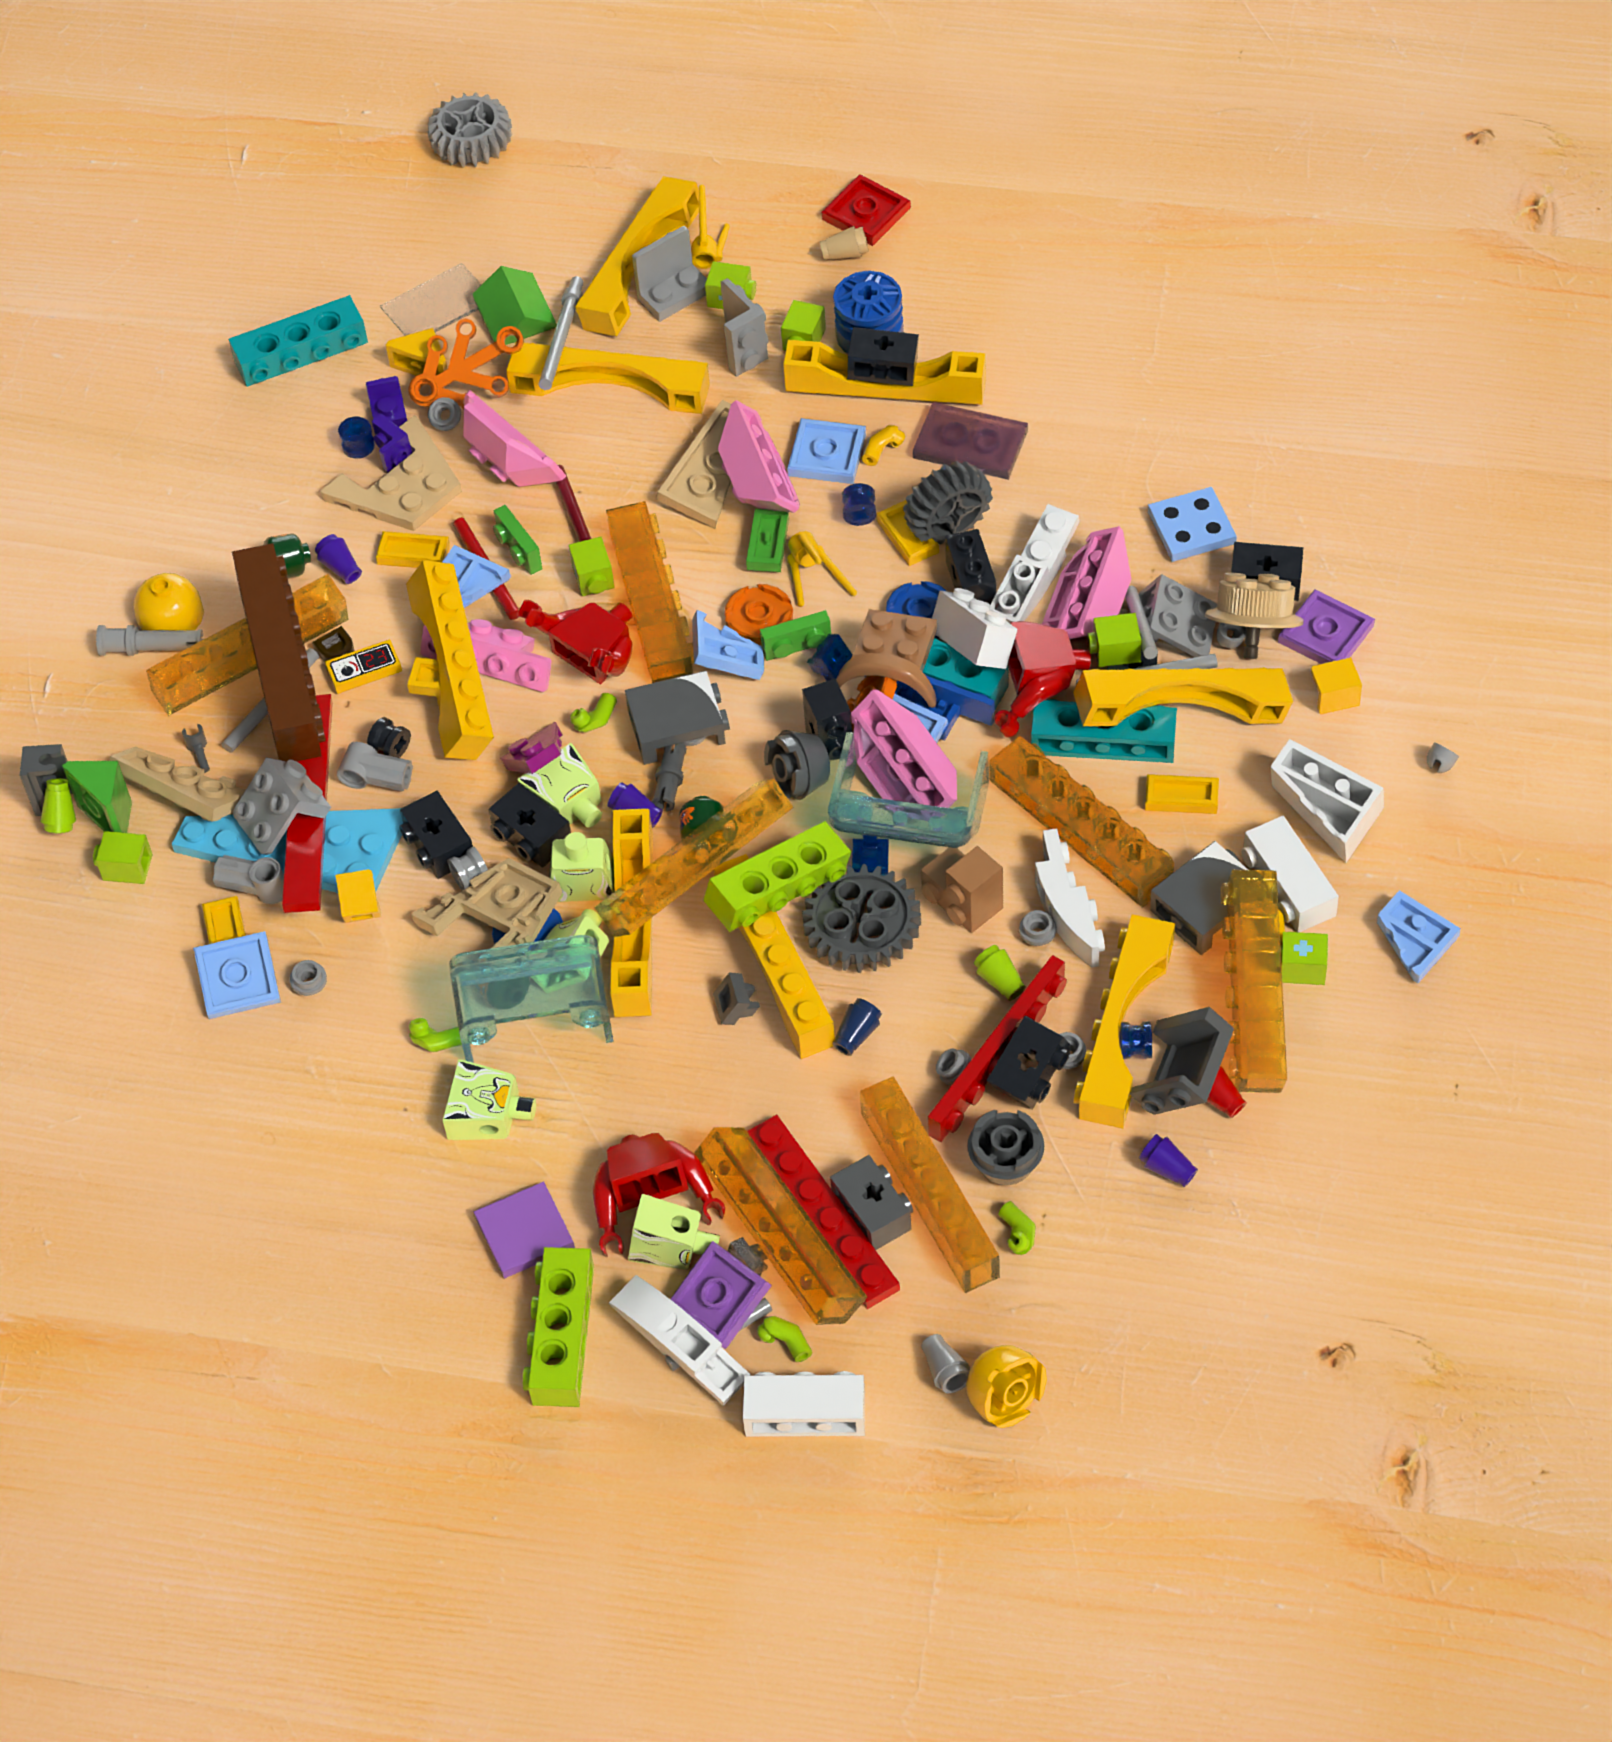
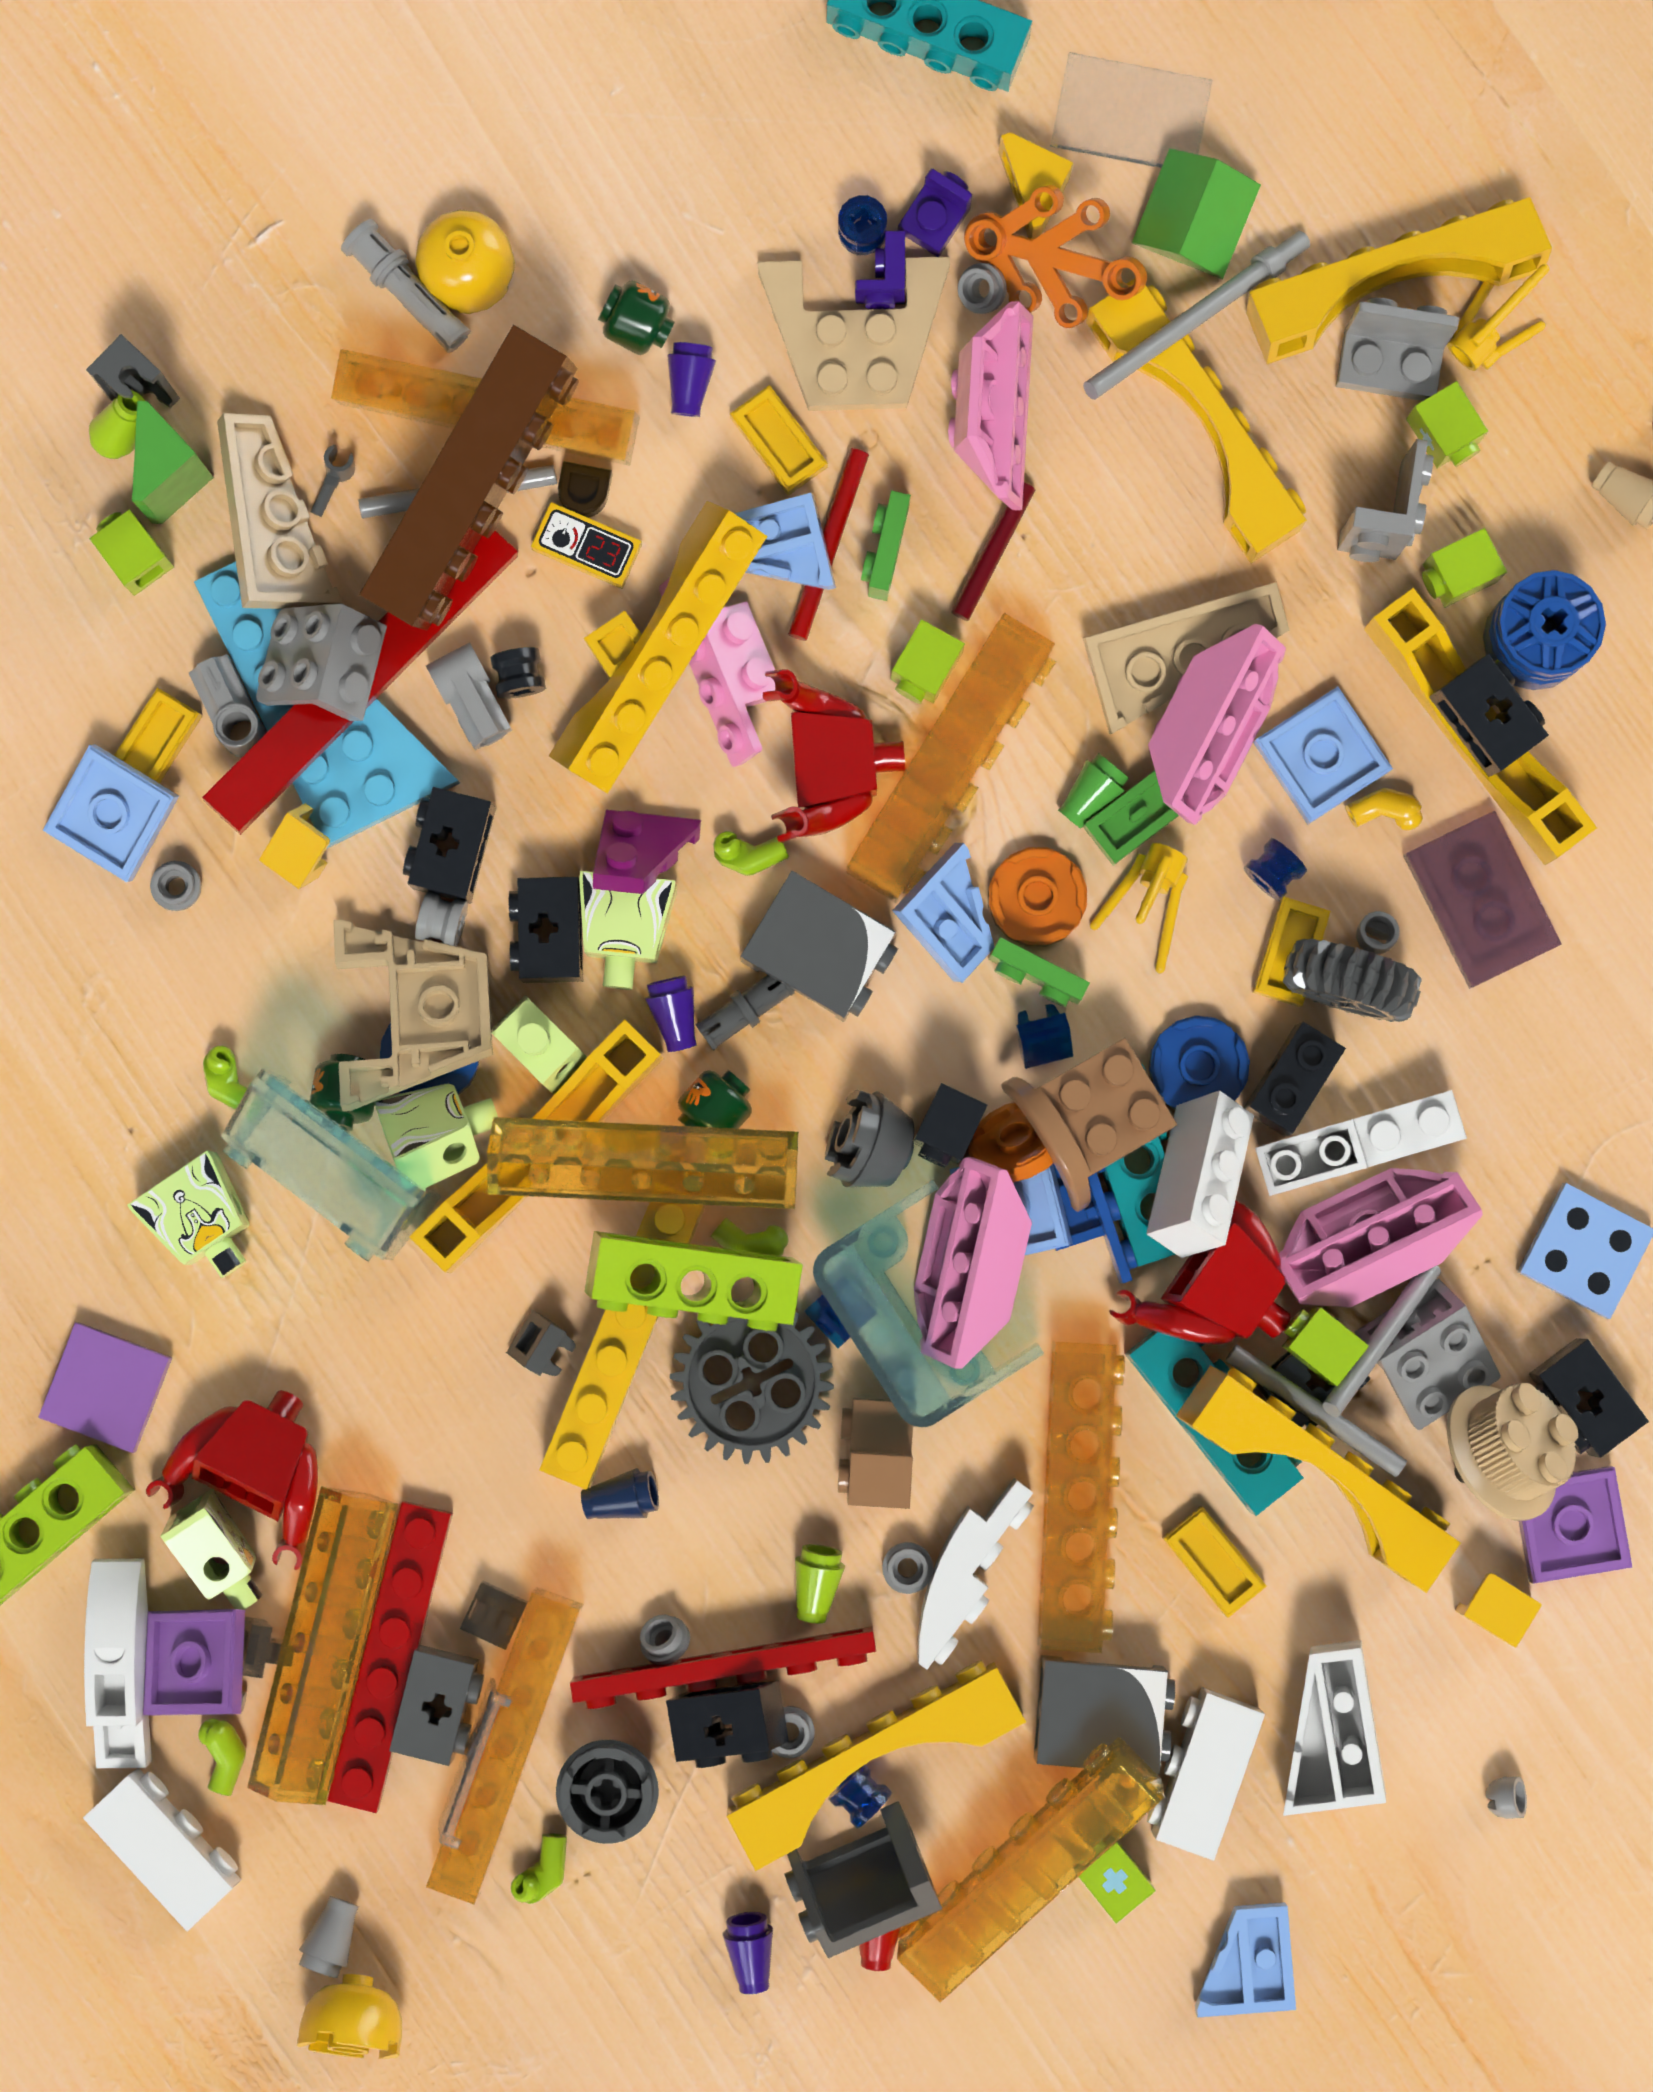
camera: 40 degrees right, 30 degrees up
(734, 545) = (1093, 790): none -> bright green cone
(853, 1141) = (494, 1615): none -> clear smoke tile
(928, 1211) = (469, 1763): none -> clear piece

